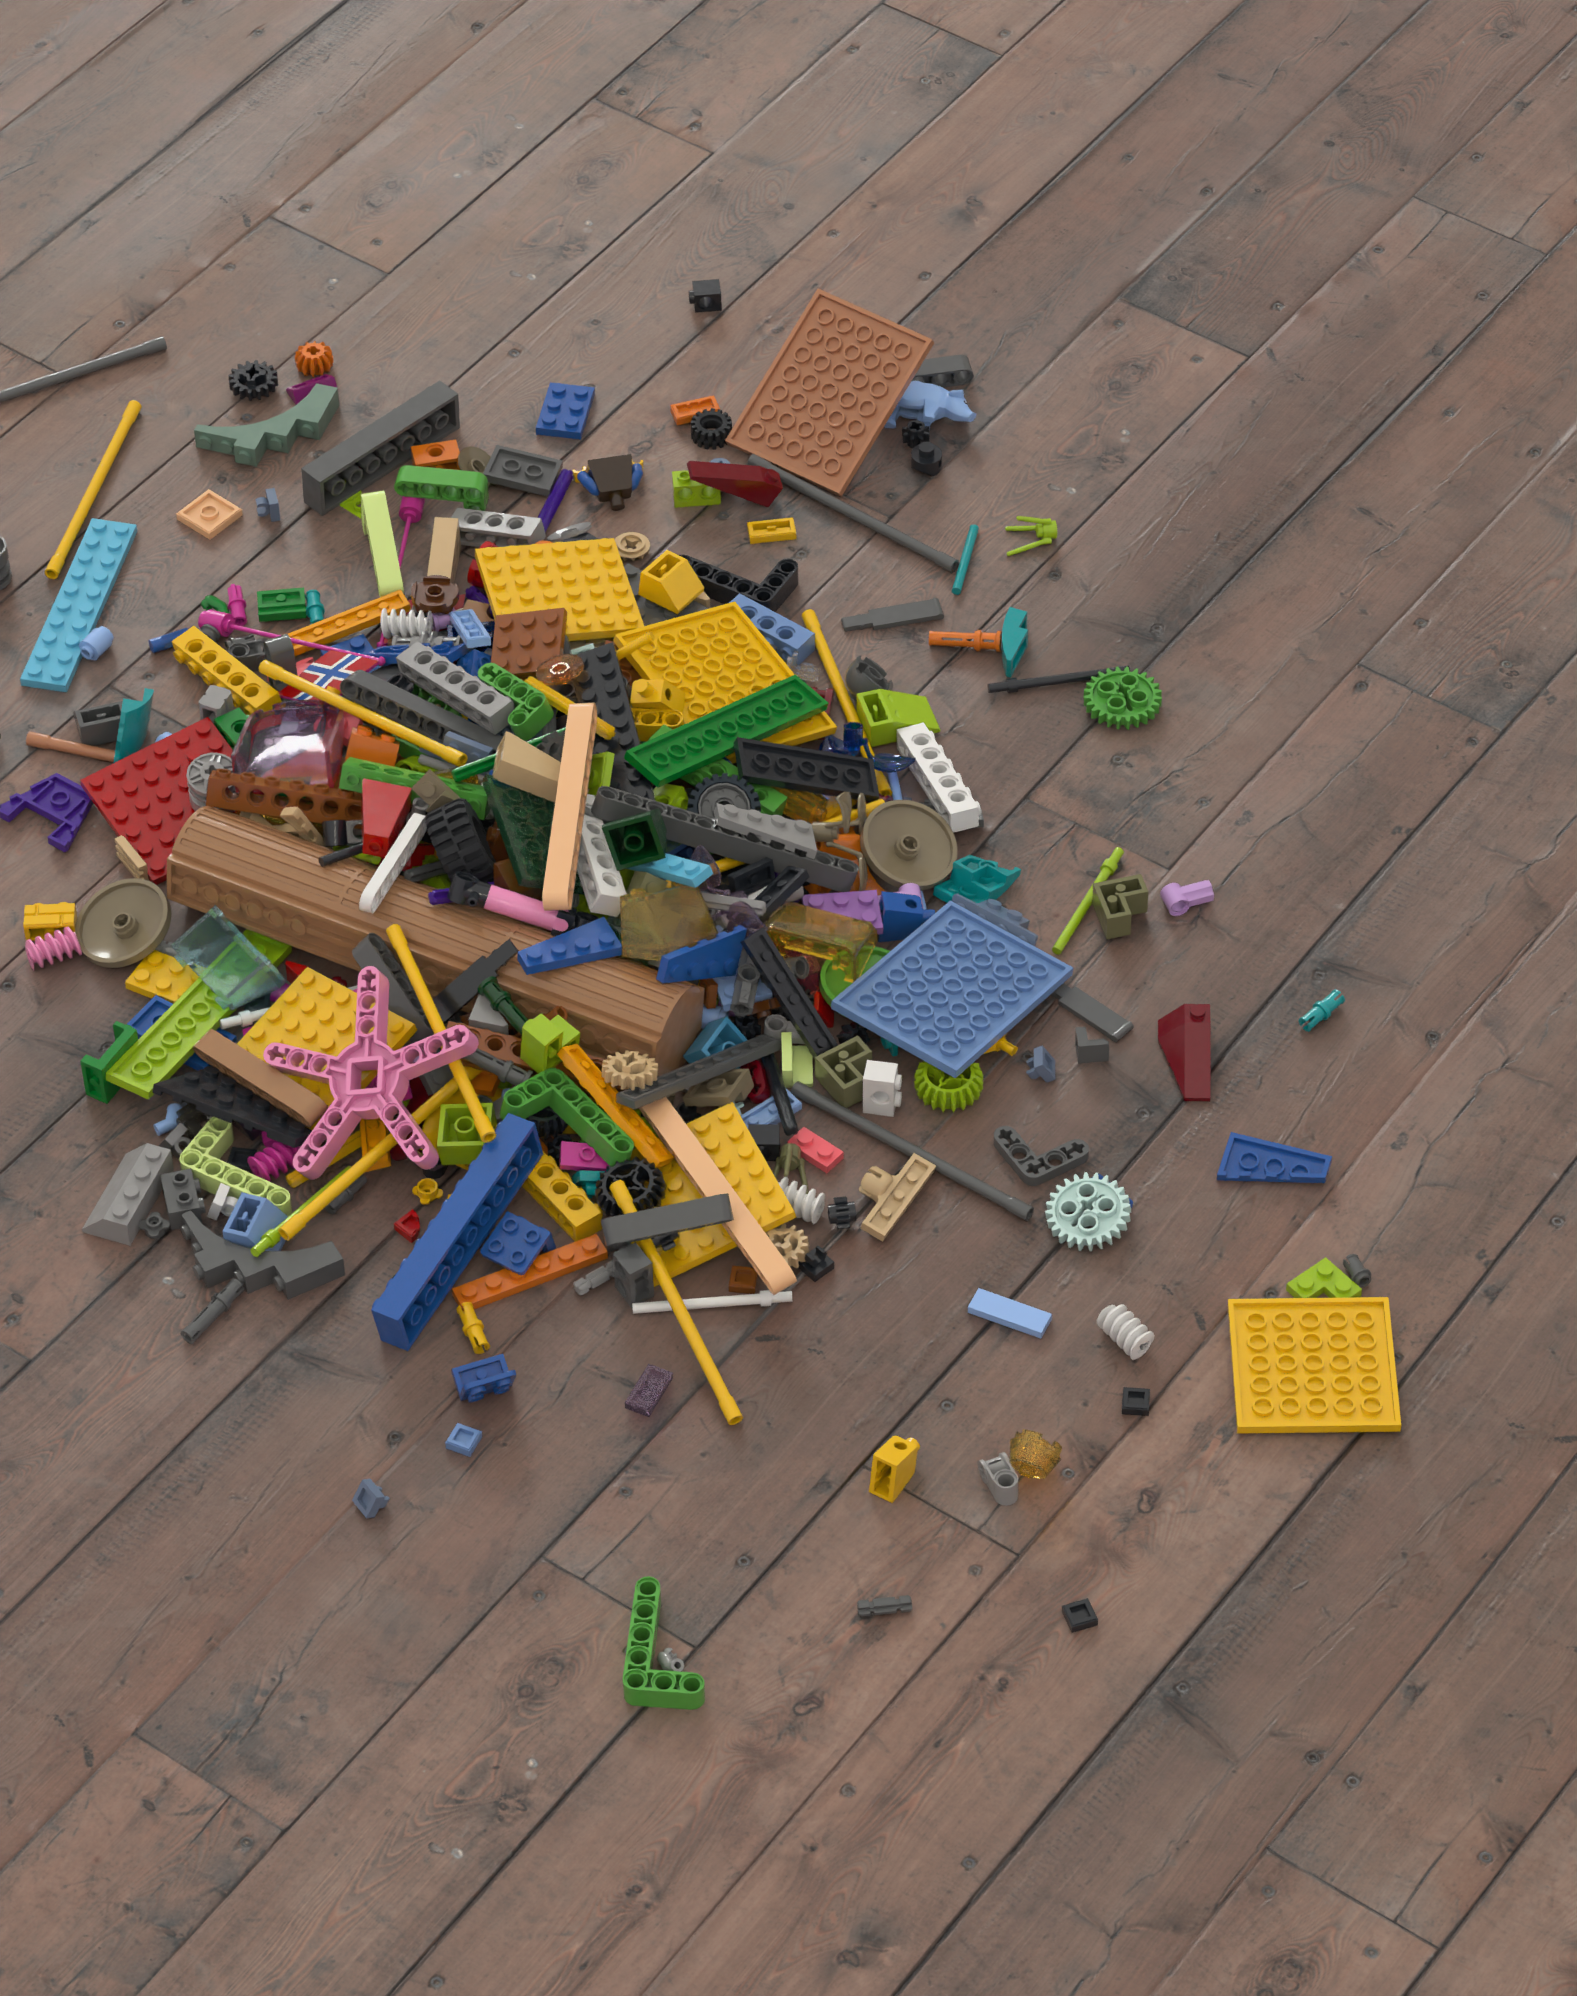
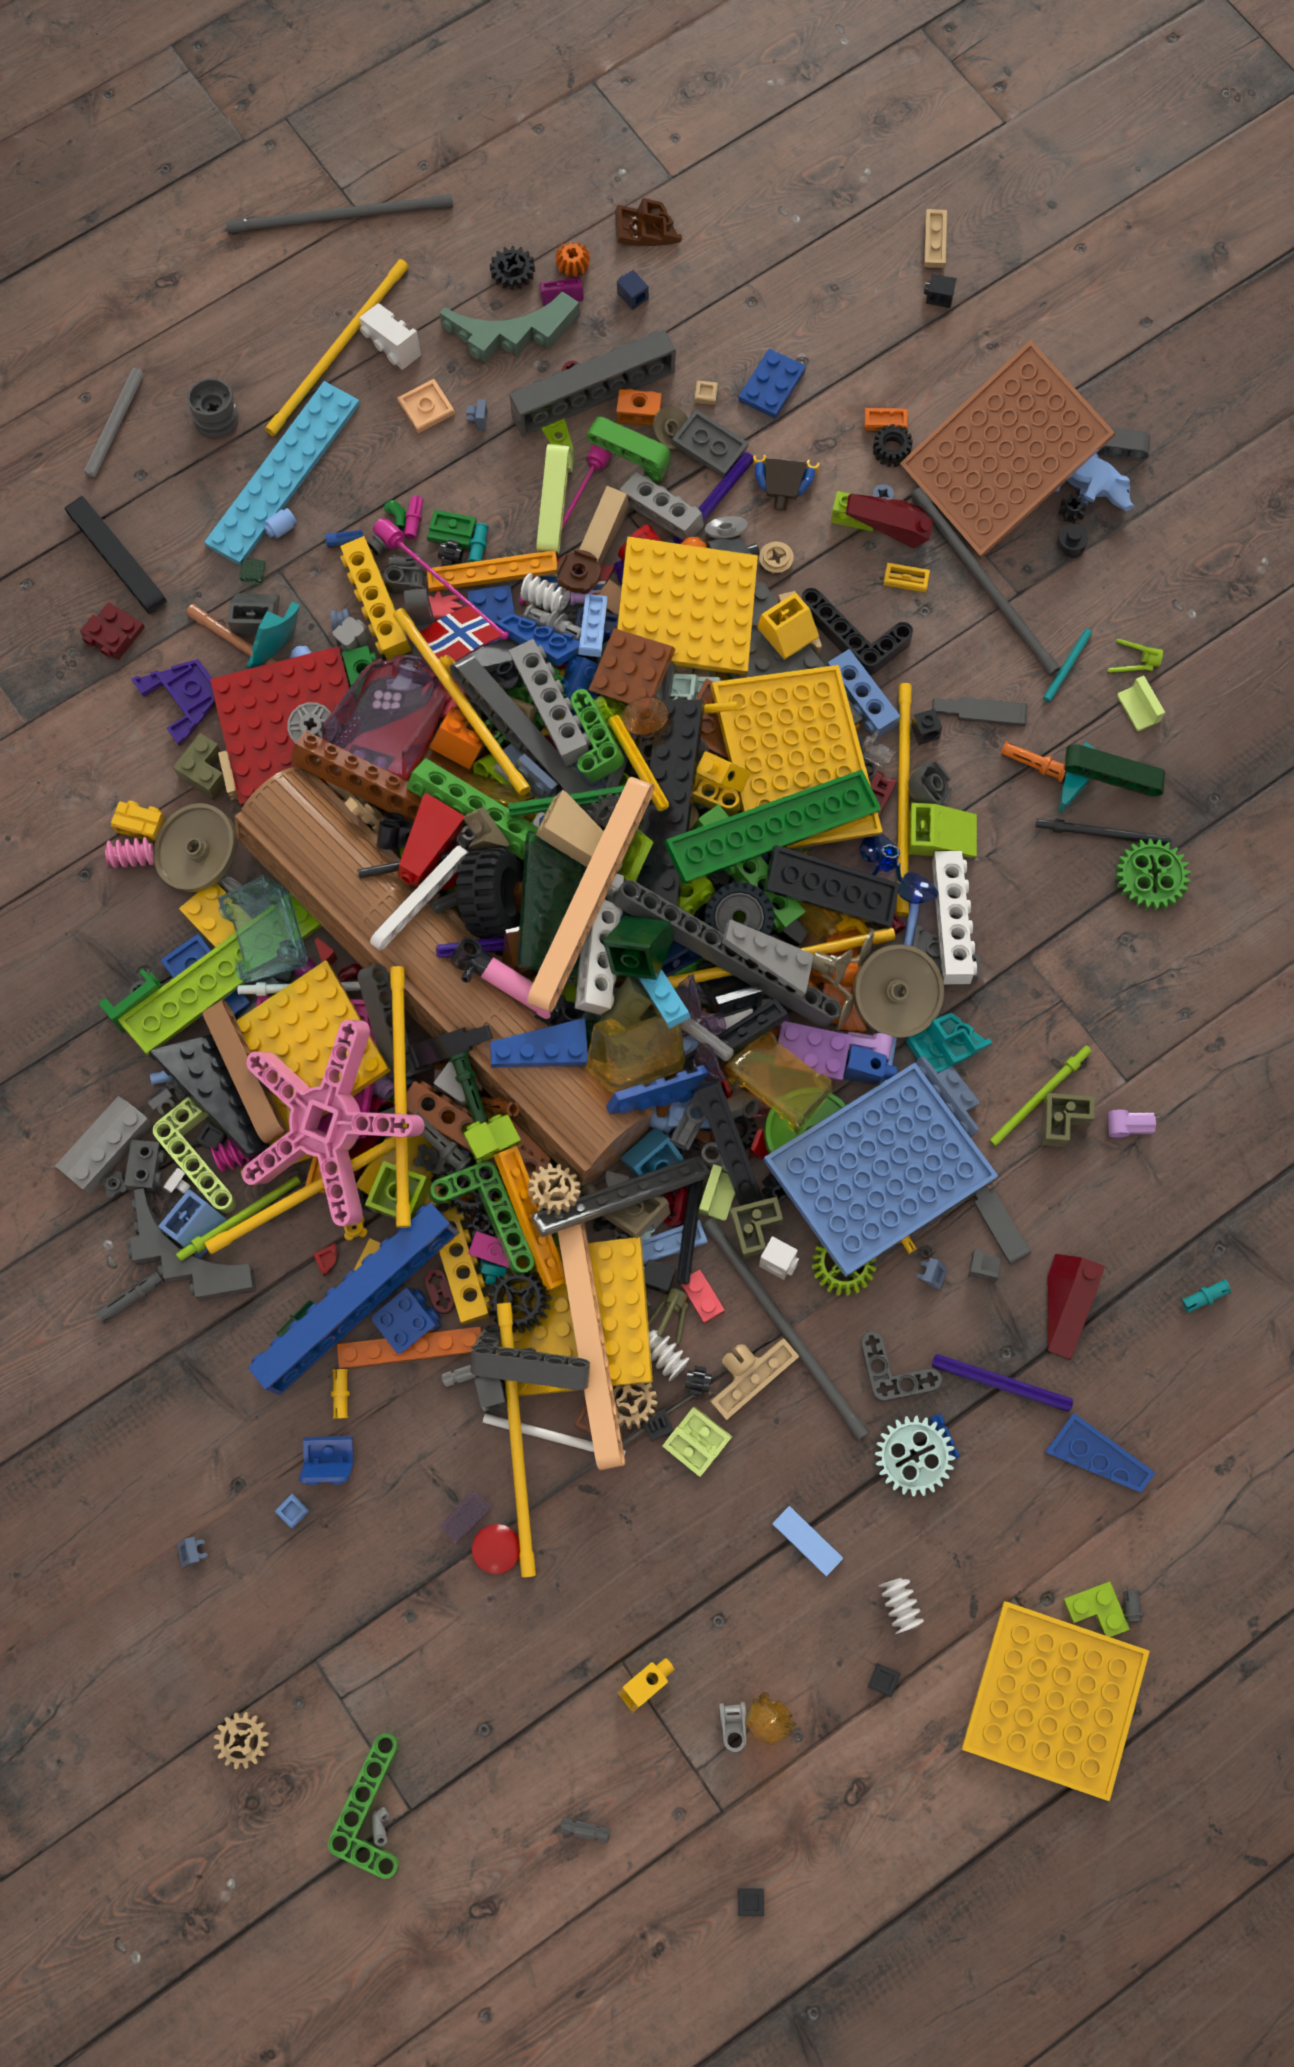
camera: 20 degrees right, 25 degrees up
(82, 690) = (252, 570): none -> clear green tile
(98, 860) = (198, 769): none -> olive brick
(149, 463) = (390, 336): none -> white wedge
(191, 704) = (338, 617): none -> sand blue wheel
(289, 621) = (450, 553): none -> black gear
(378, 315) = (645, 225): none -> reddish brown slope
(387, 368) = (632, 289): none -> dark blue brick
(493, 1634) = (247, 1750): none -> tan gear
(500, 434) = (706, 392): none -> tan tile
(544, 1216) = (434, 1293): none -> dark red beam
(682, 257) = (935, 238): none -> tan plate
(692, 1409) = (496, 1549): none -> red dish
(844, 638) = (926, 726): none -> black brick
(862, 1264) = (697, 1441): none -> yellowish green slope
(1048, 620) = (1114, 770): none -> dark green beam
(1053, 569) = (1141, 704): none -> yellowish green panel
(1150, 1134) = (1003, 1383): none -> dark purple axle

